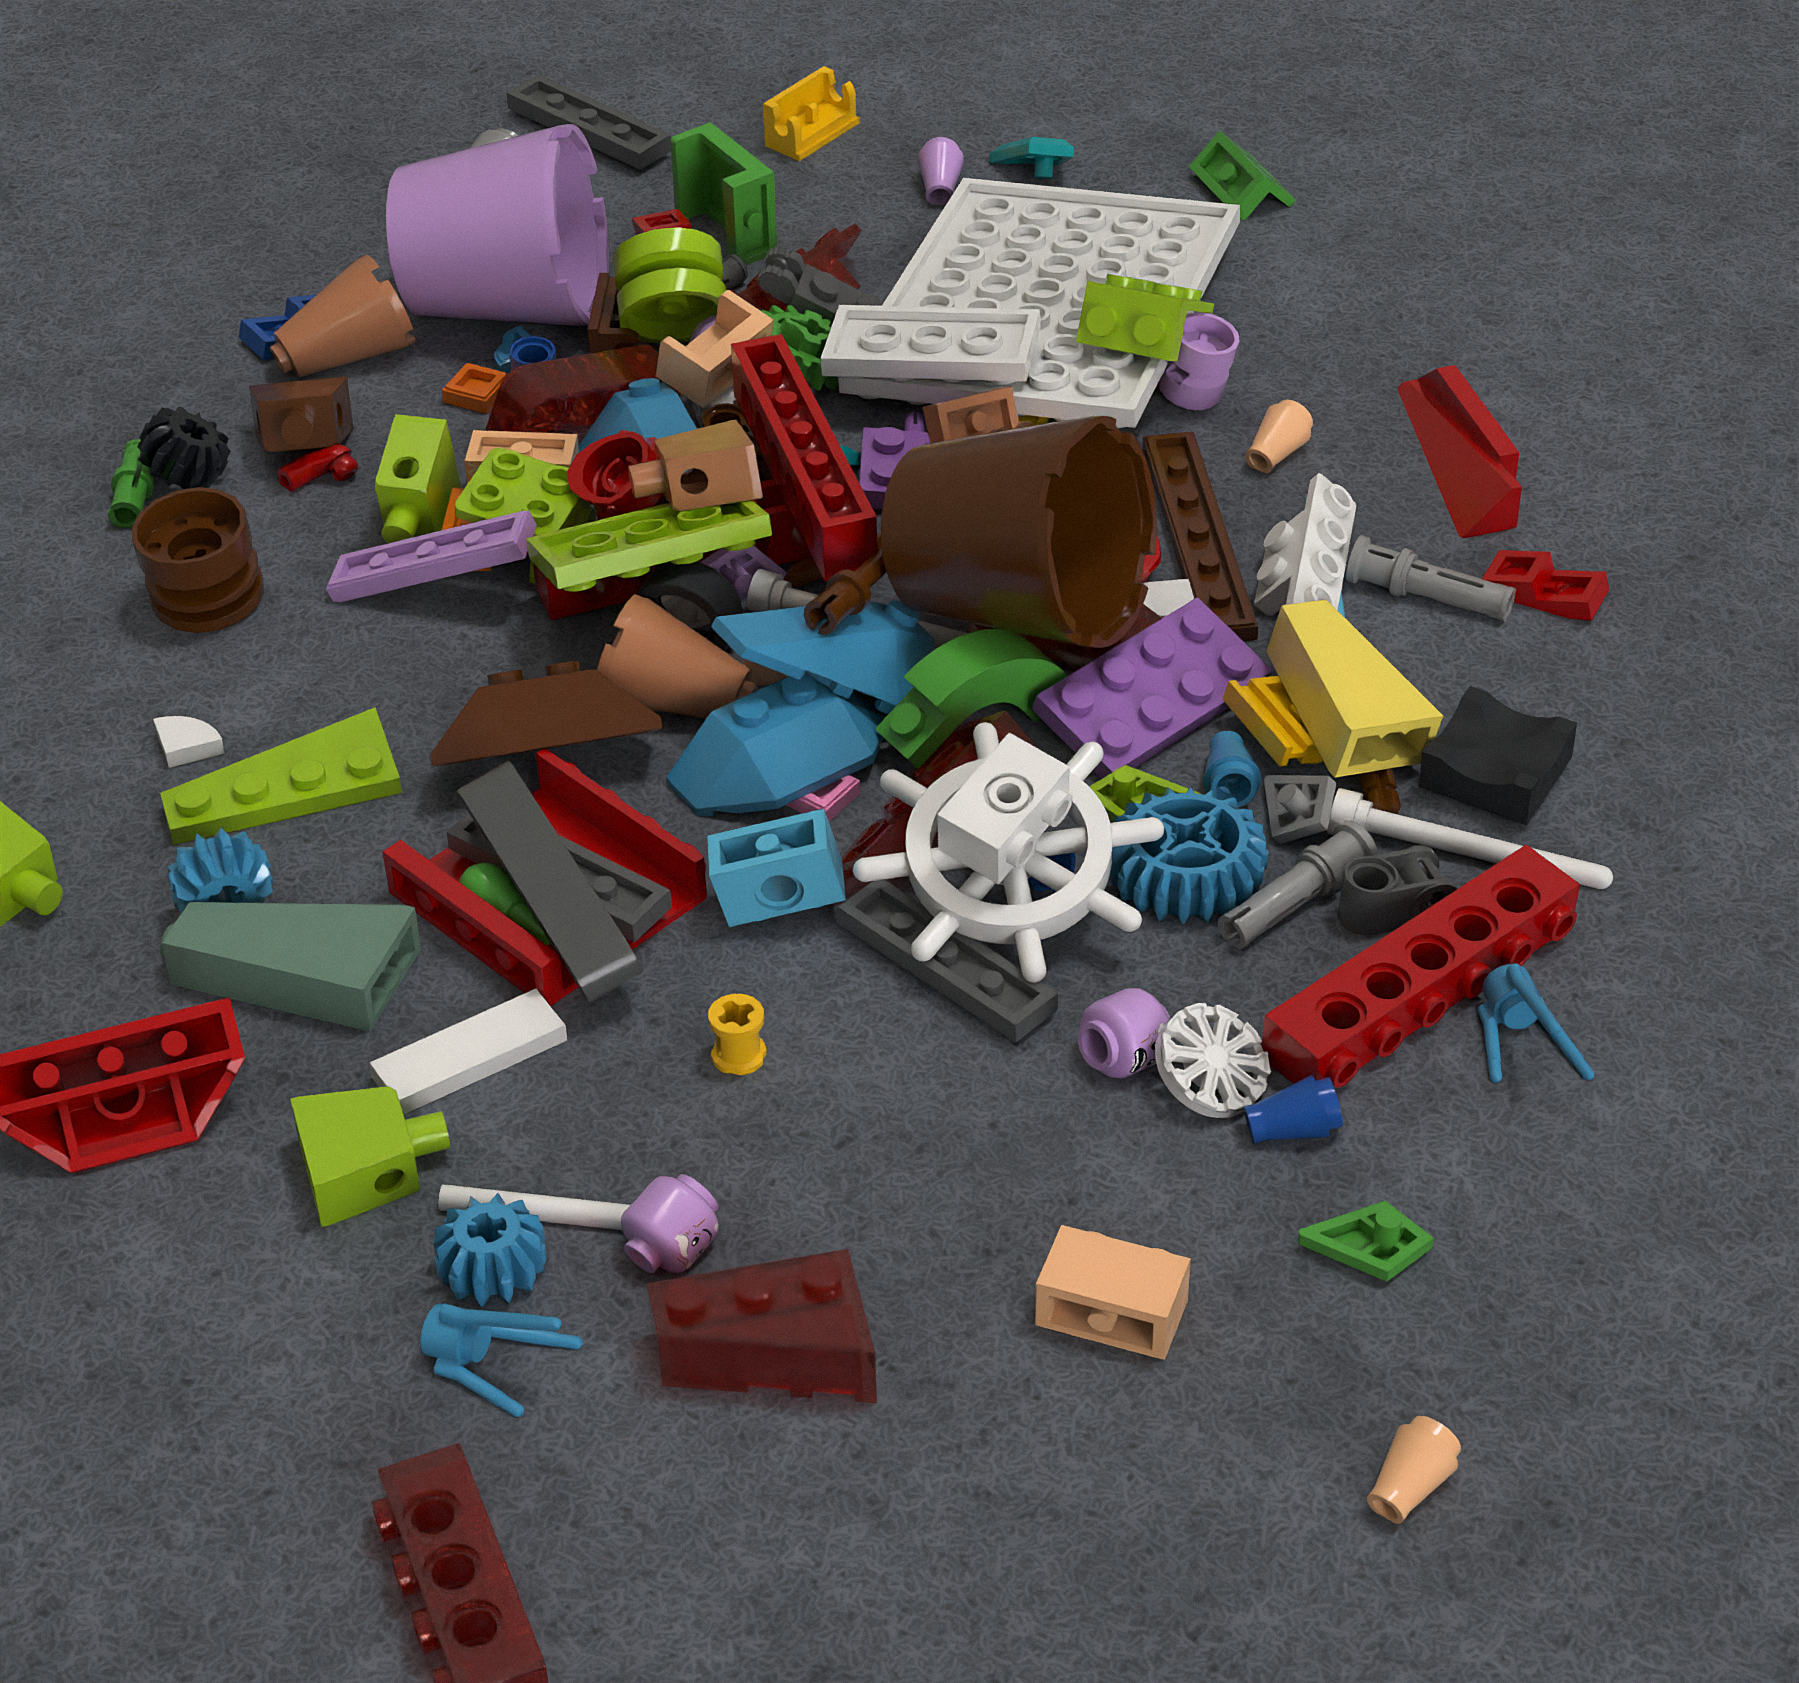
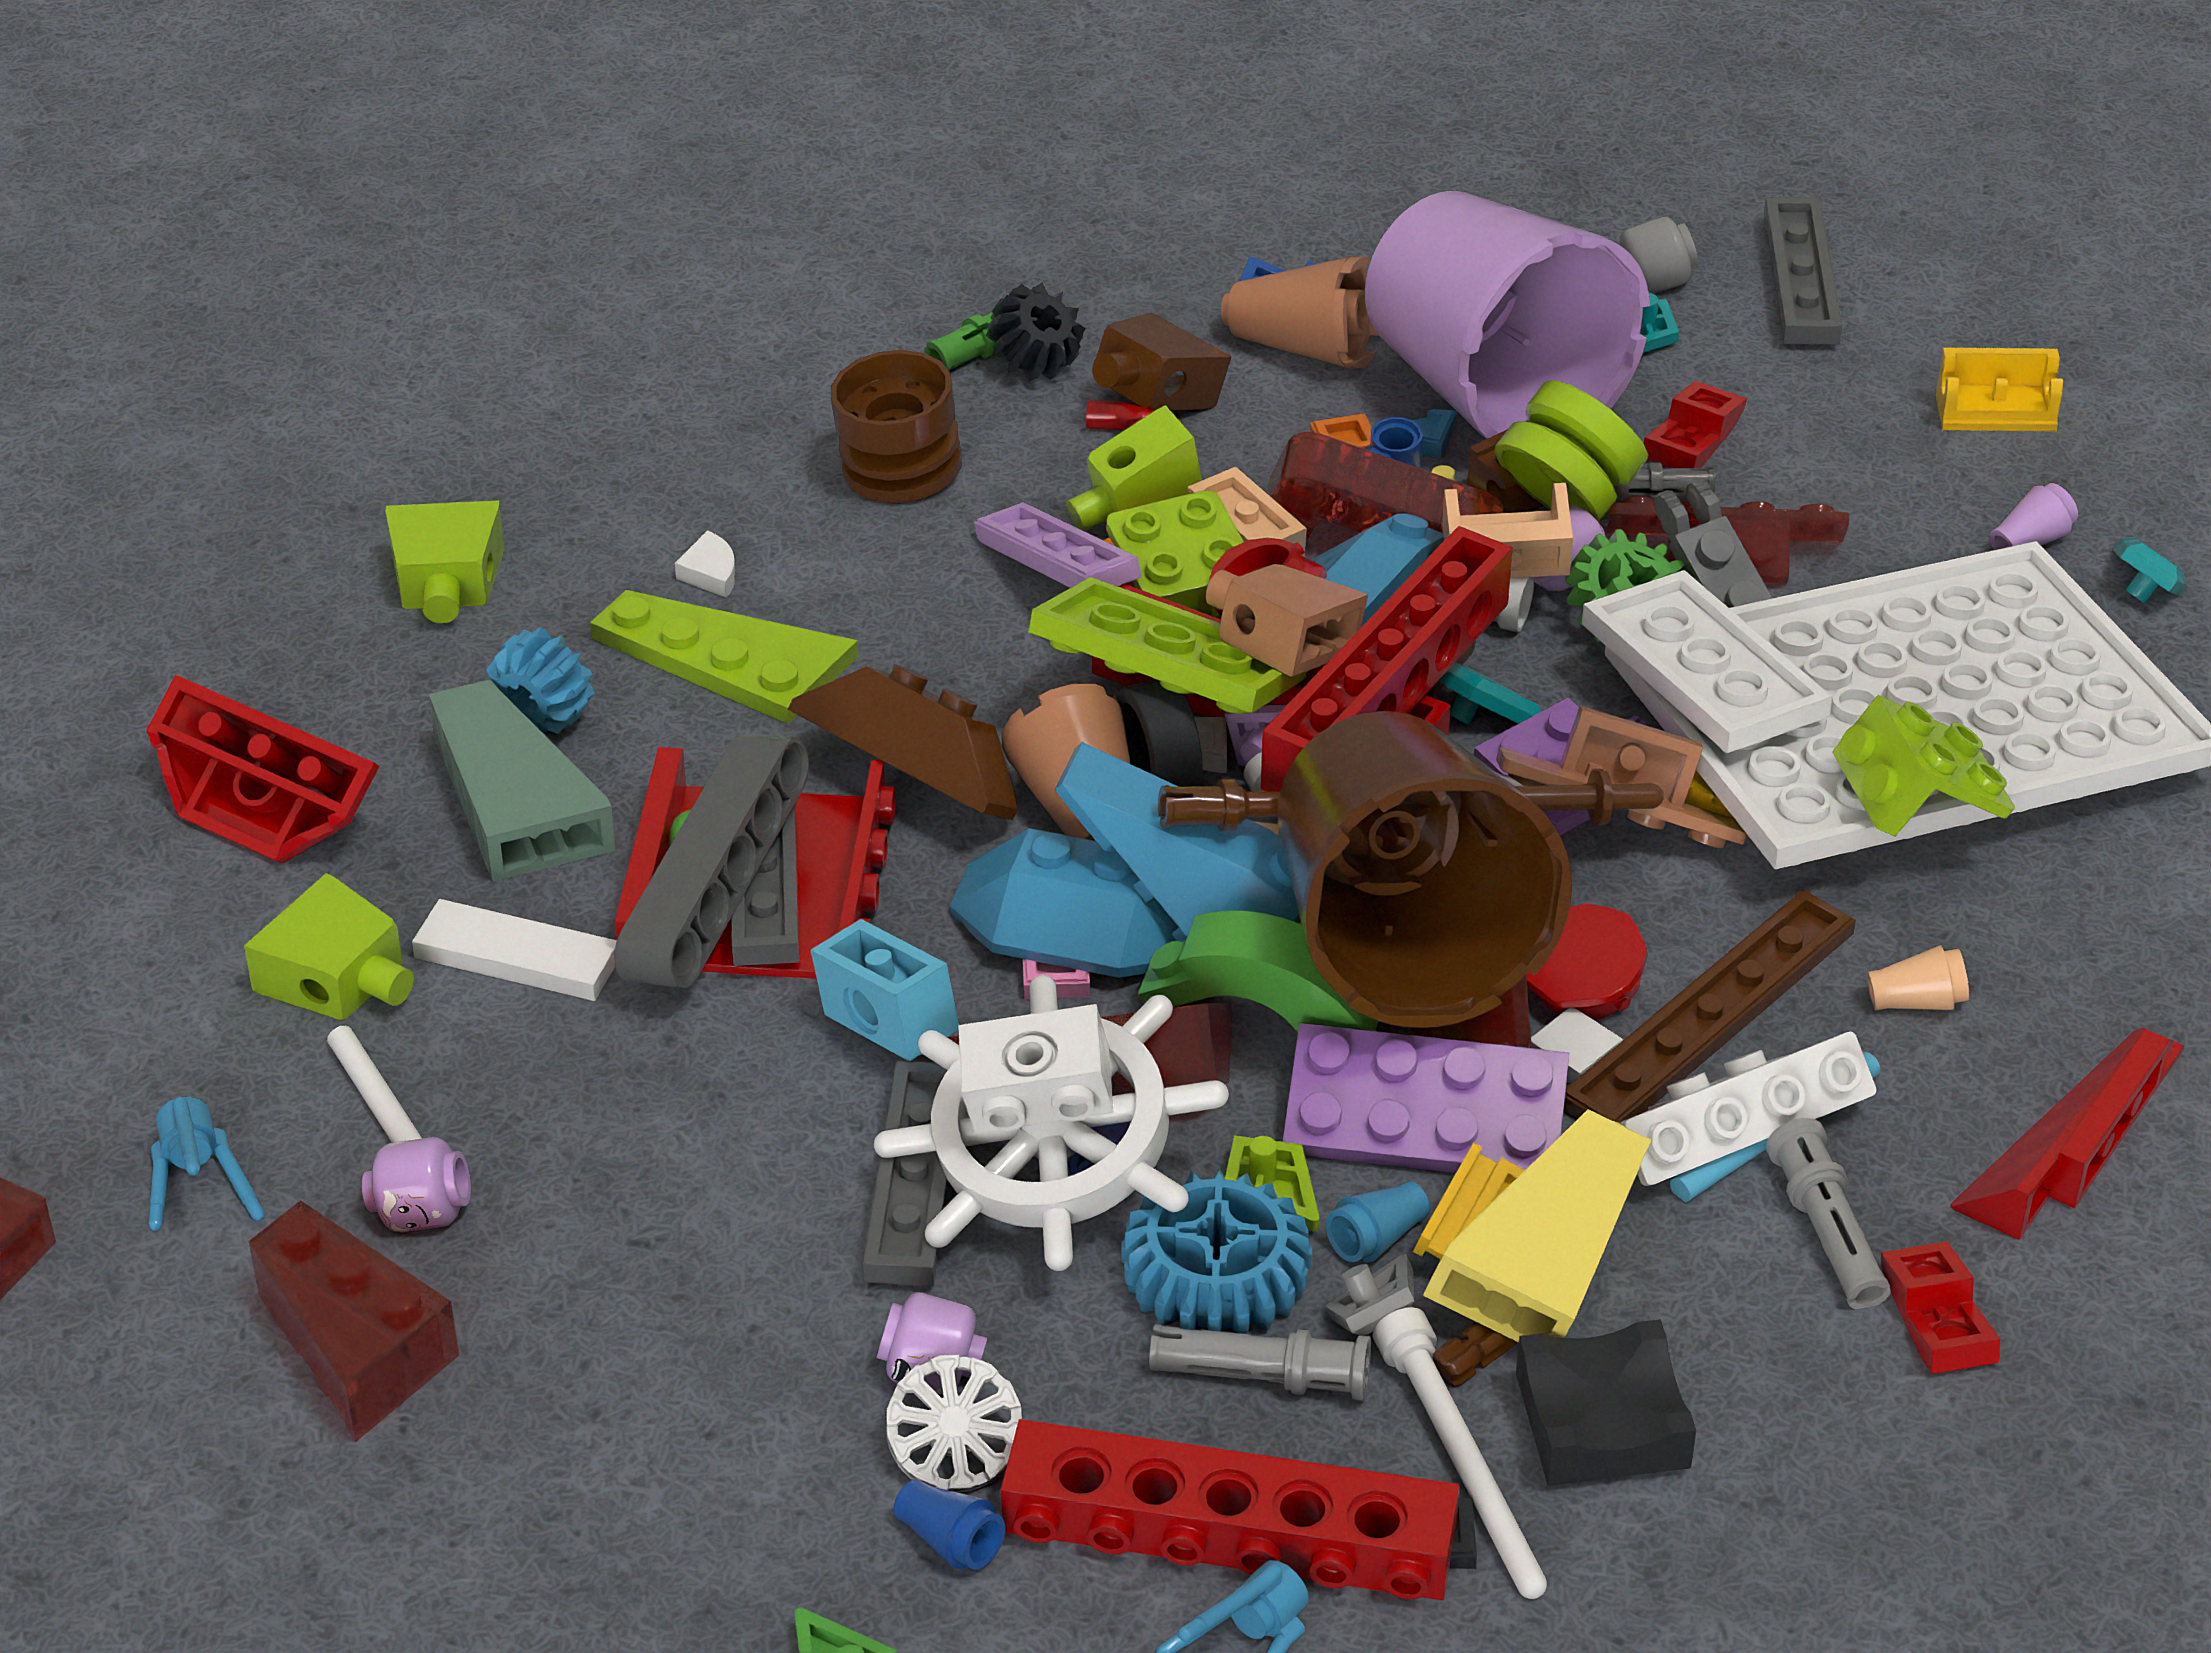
camera: 50 degrees right, 0 degrees up
(489, 1249) = (292, 1095): dark azure gear -> none
(729, 186) = (1773, 409): bright green panel -> none
(737, 1025) = (679, 1101): yellow bush -> none
(1112, 1291) = (599, 1515): light nougat brick -> none
(1202, 363) = (1943, 856): lavender wheel -> none
(1389, 889) = (1325, 1423): dark grey piece -> none

